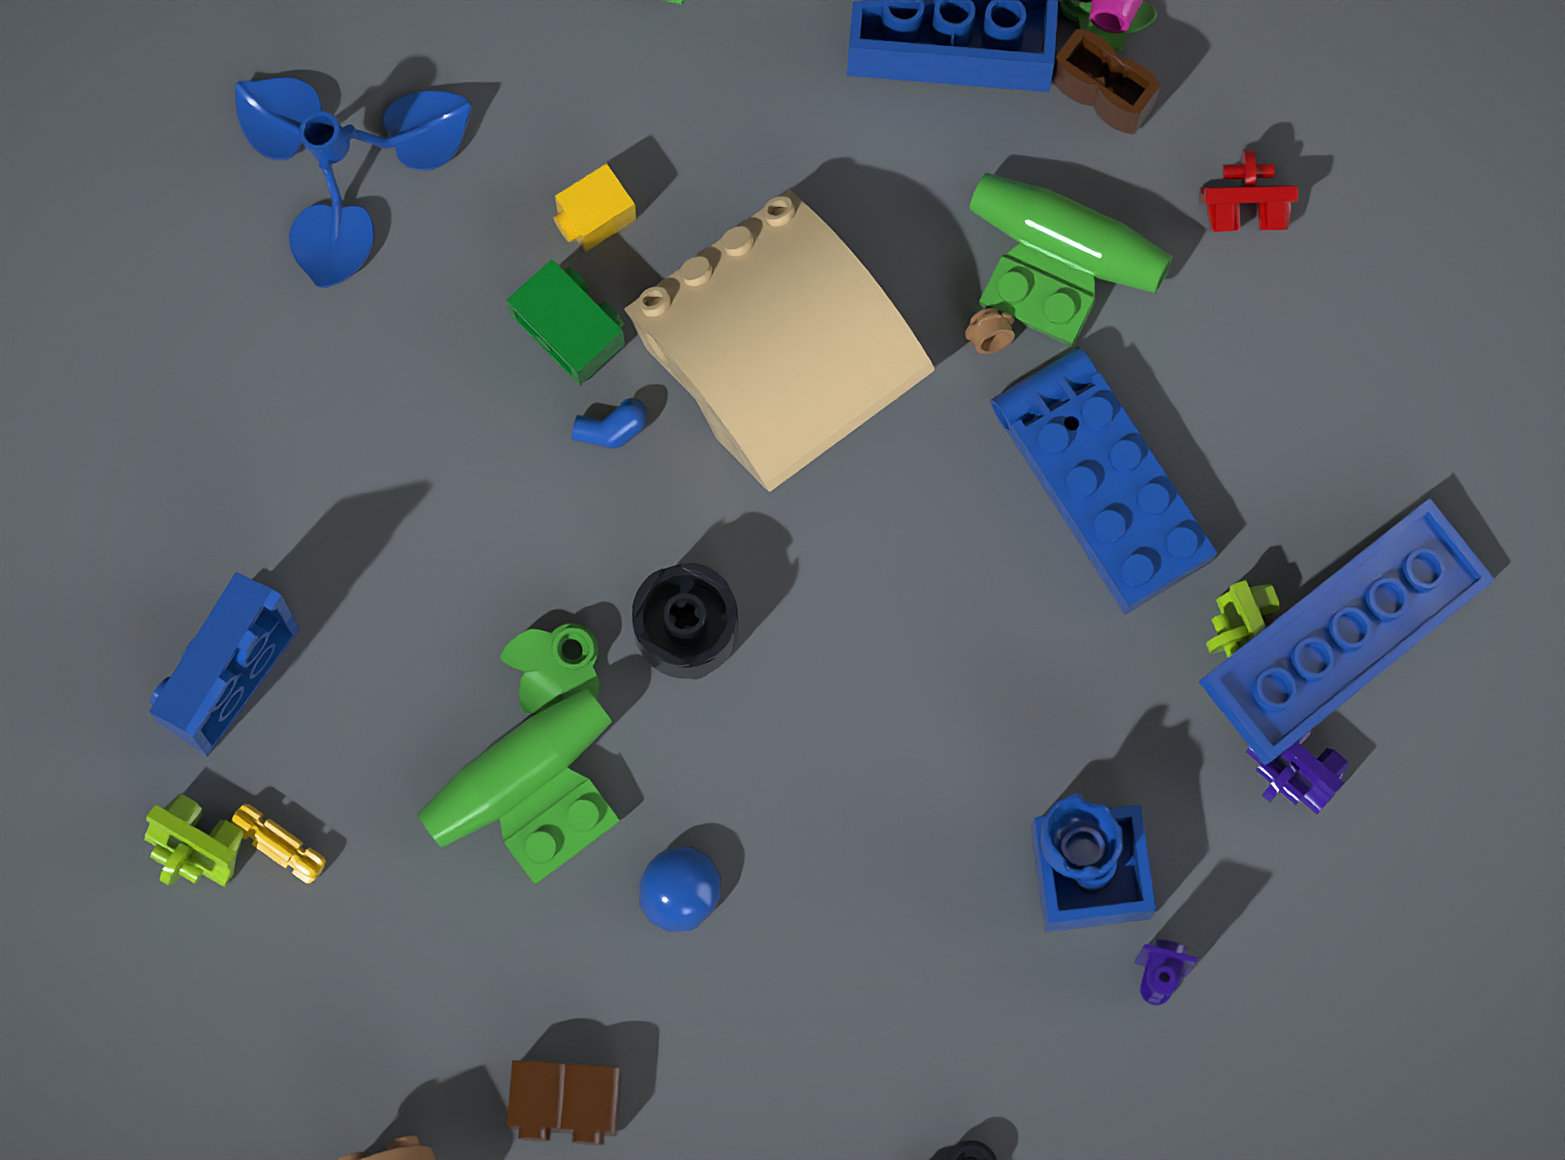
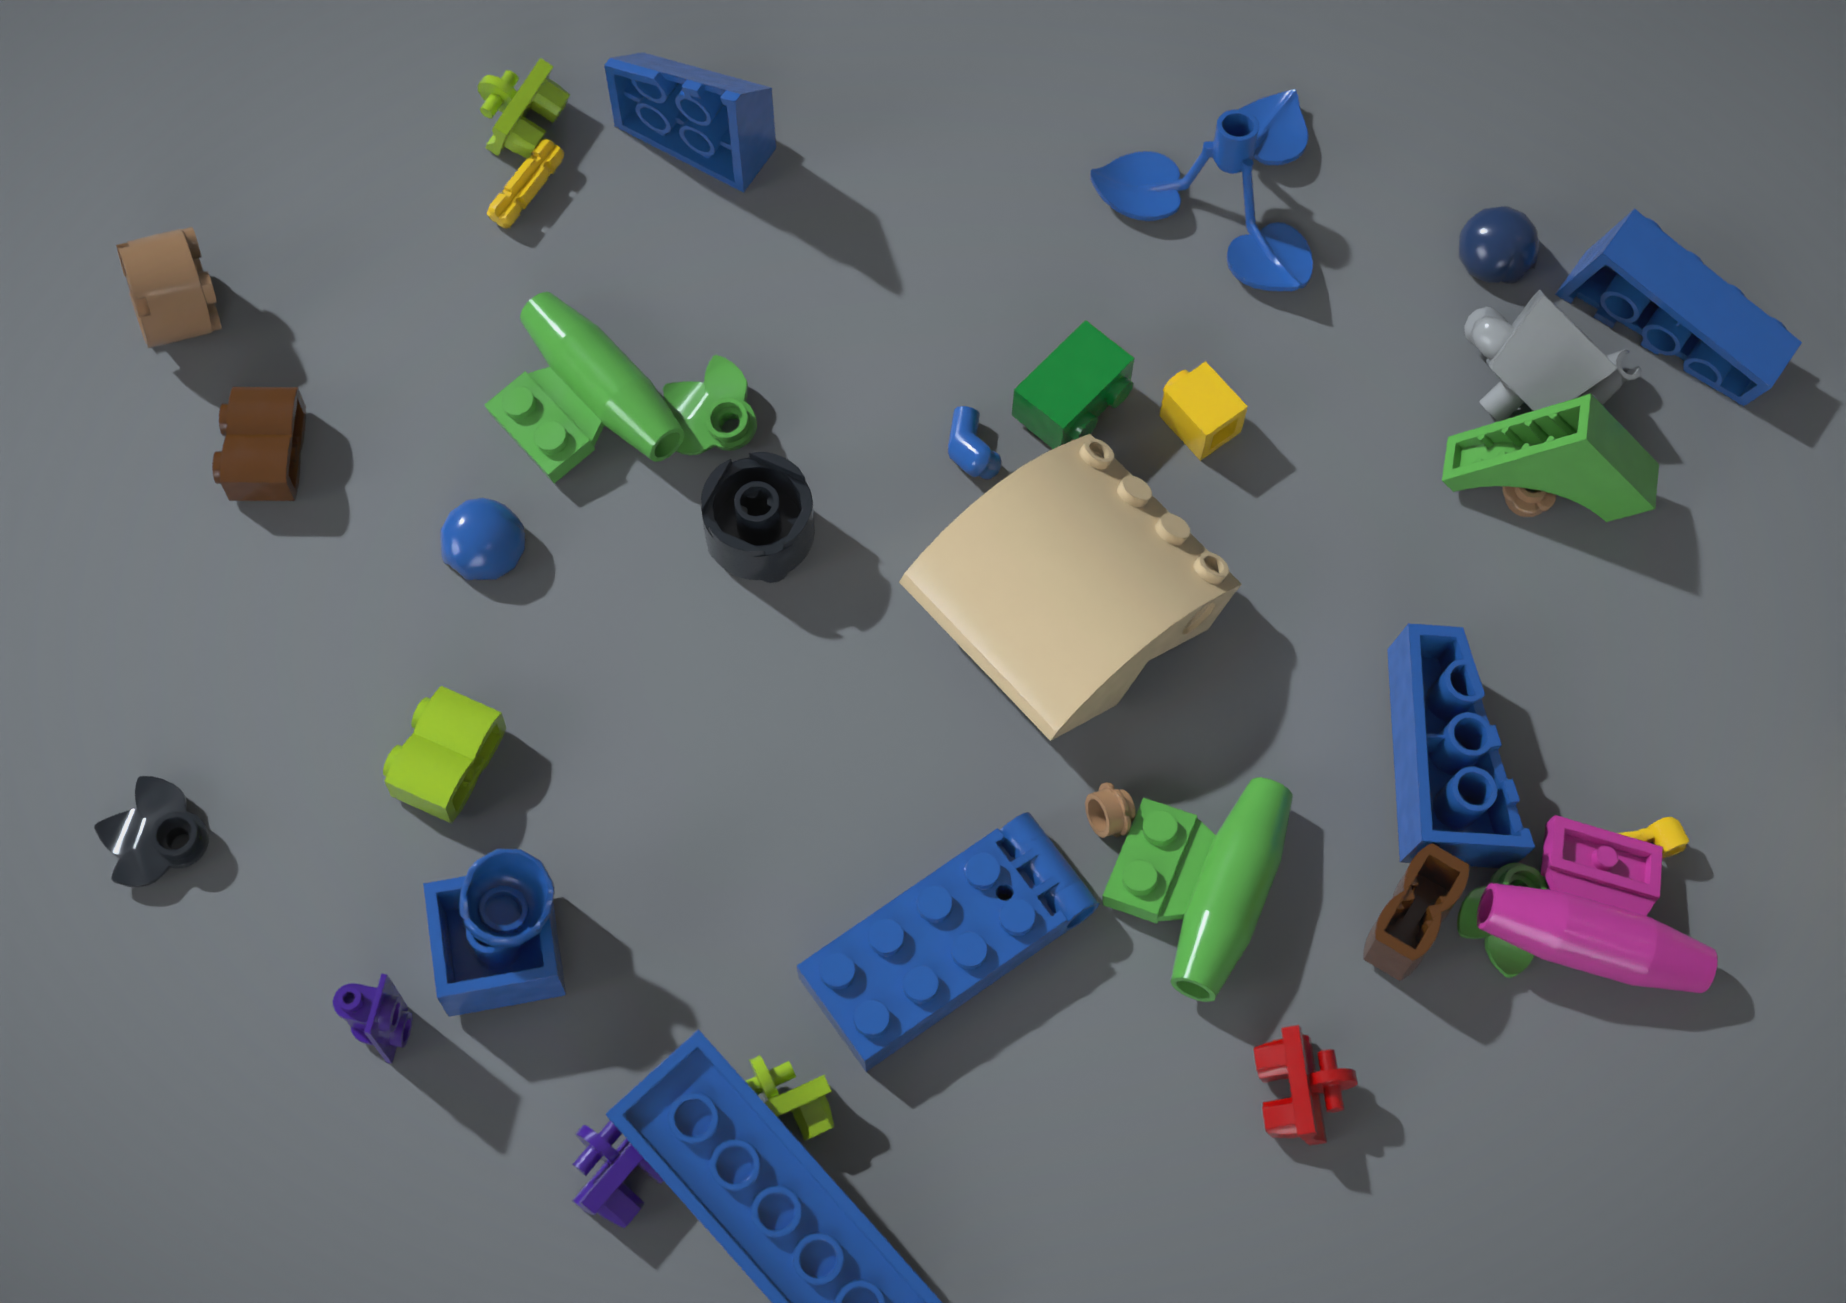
camera: 85 degrees right, 10 degrees down
(903, 919) = (444, 754): none -> lime brick

